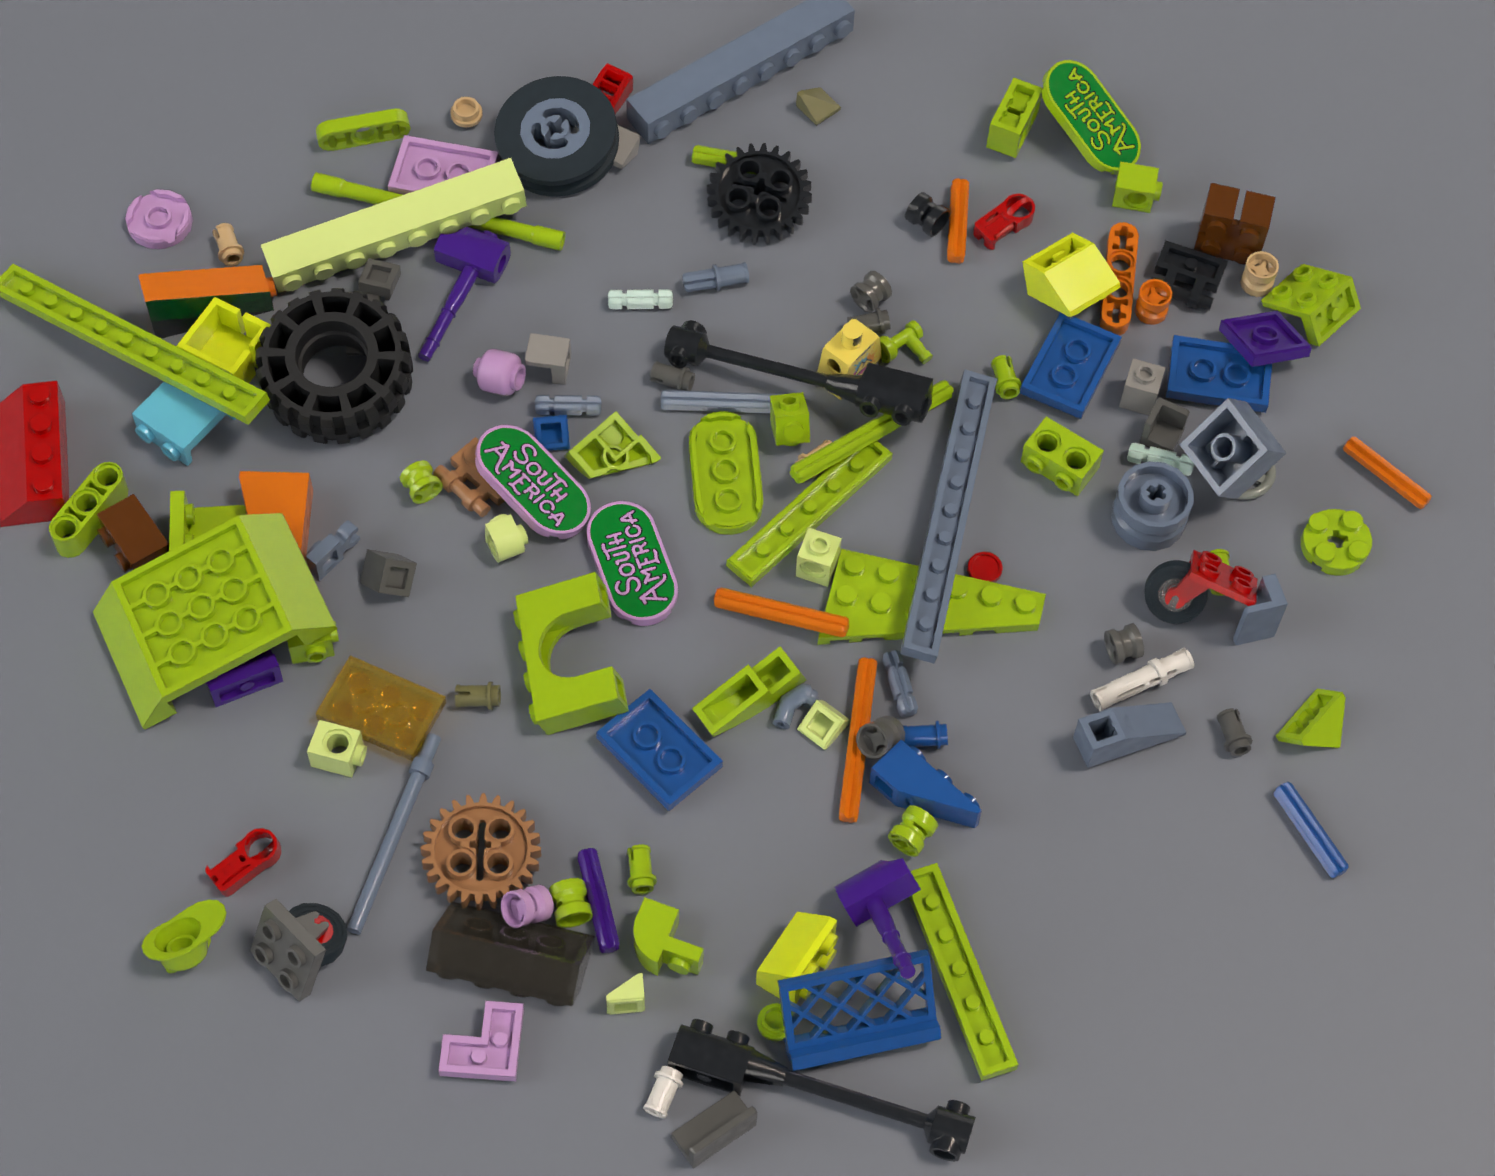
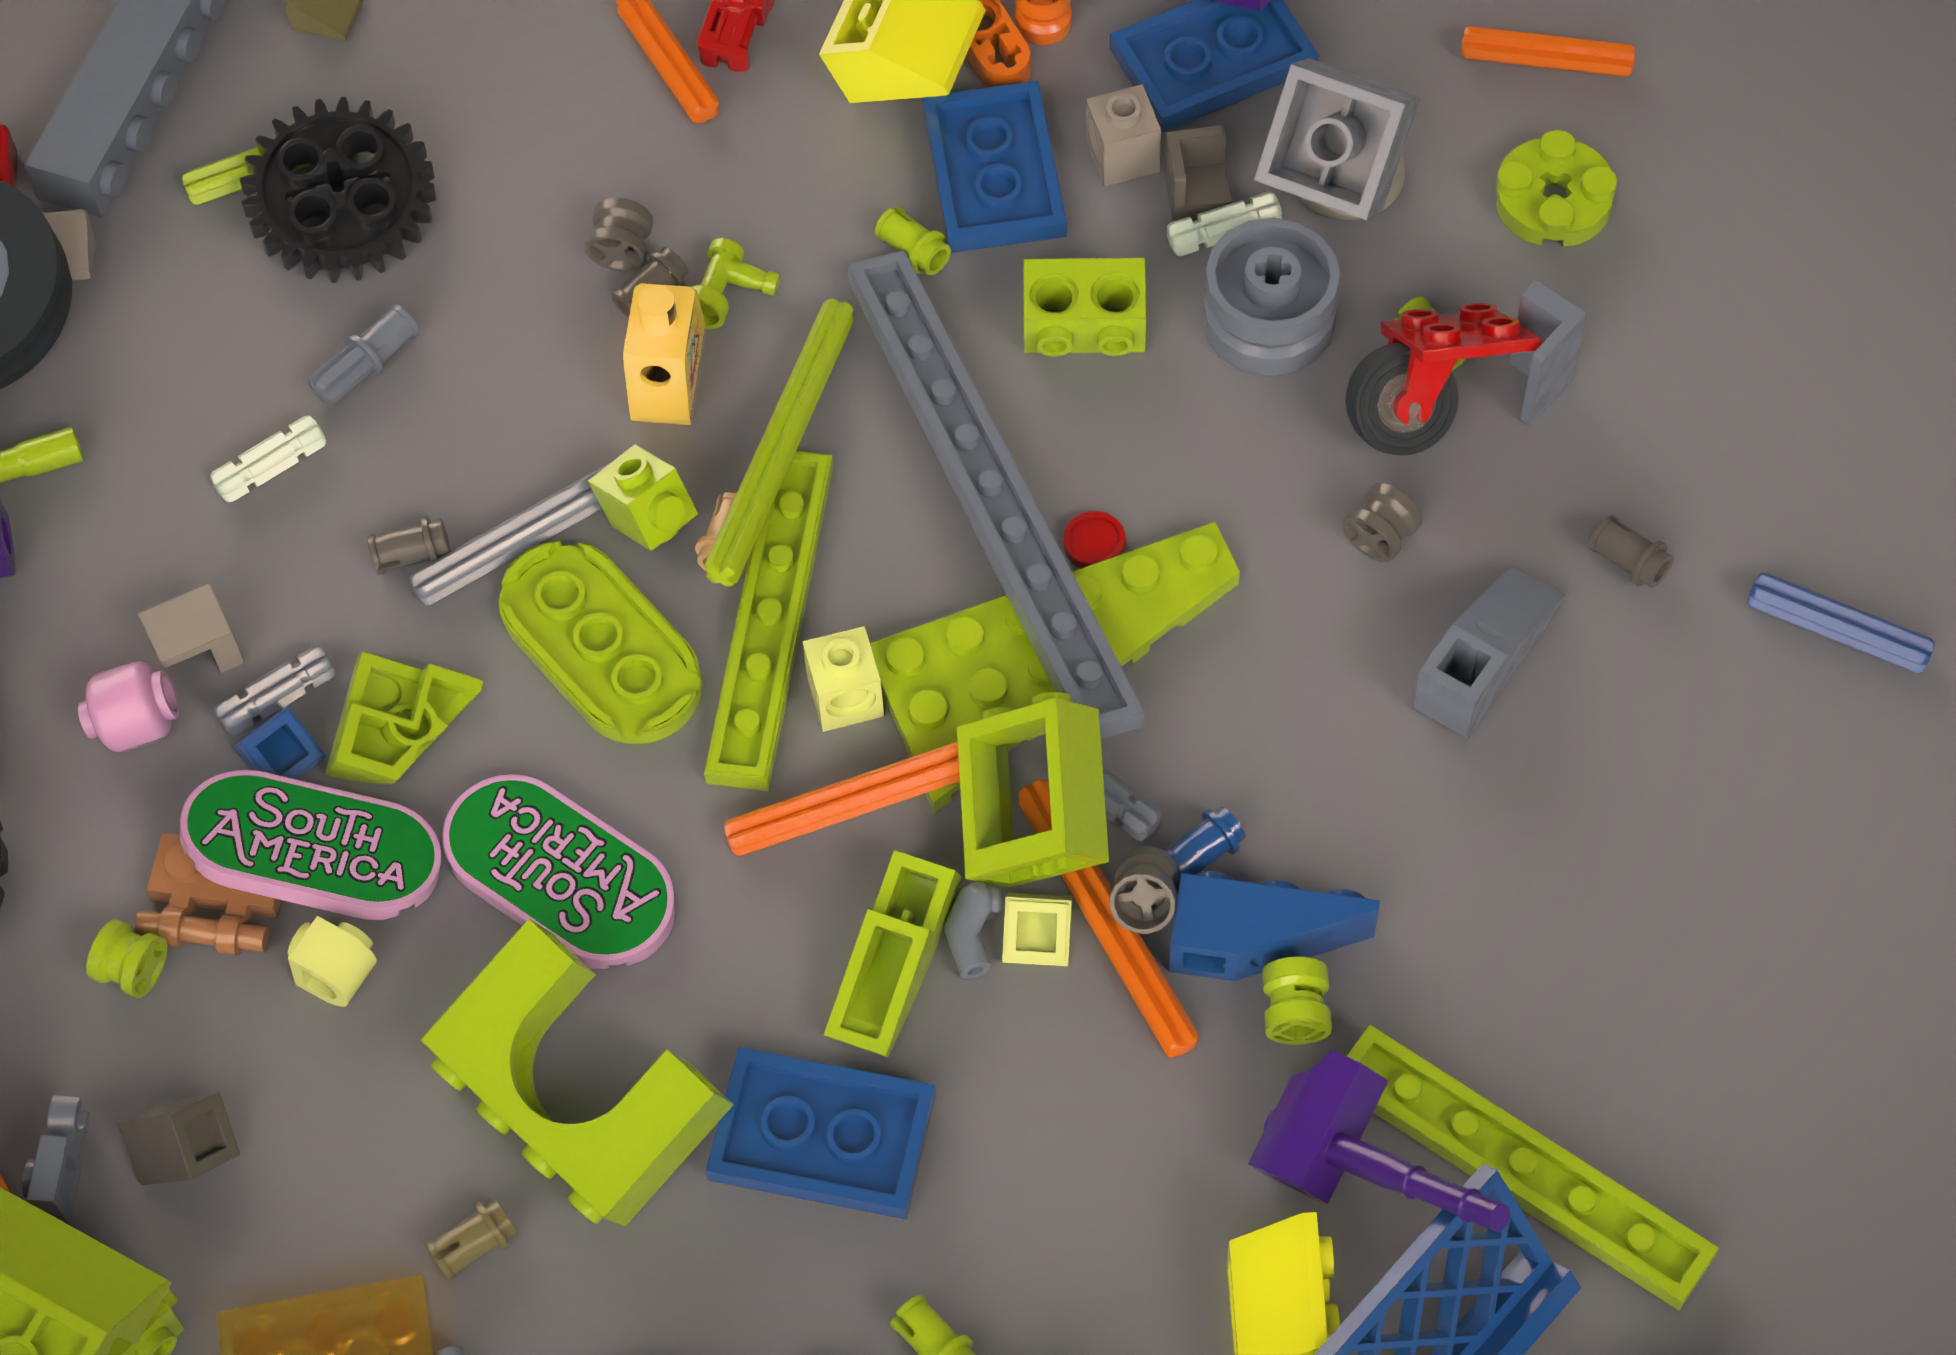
camera: 30 degrees left, 0 degrees up
(874, 670) = (1075, 792): none -> lime window
(876, 391) = (749, 376): black bar -> none
(927, 214) = (617, 71): black wheel -> none
(1154, 673) = (1456, 538): white pin -> none
(1316, 721) = (1726, 461): lime slope -> none

